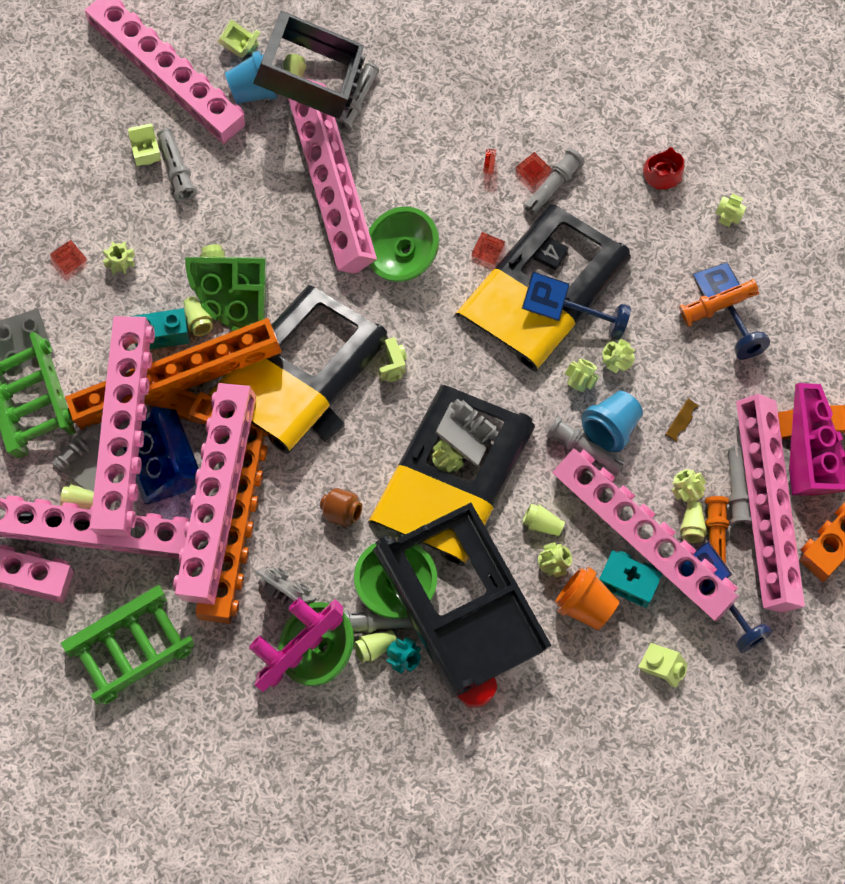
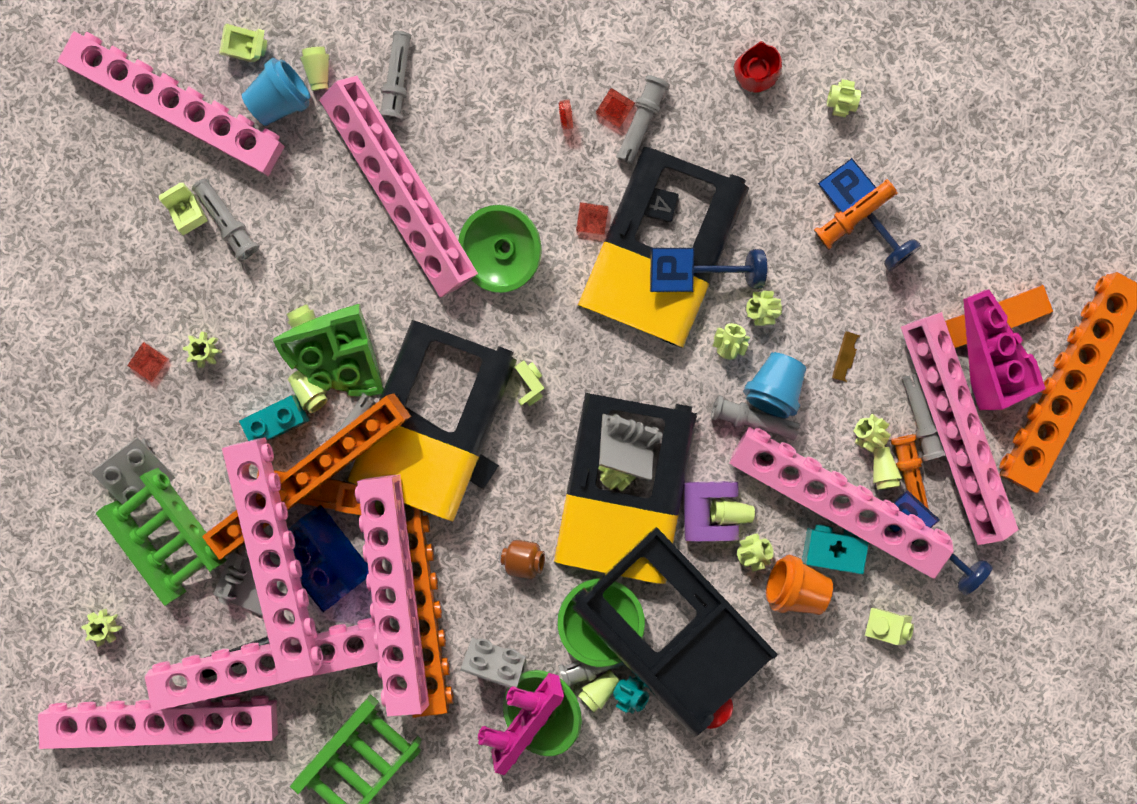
camera: 15 degrees left, 20 degrees up
(78, 496) = (250, 629): yellowish green cone -> none
(322, 42) = (343, 23): black window -> none
(512, 511) = (697, 511): none -> medium lavender connector

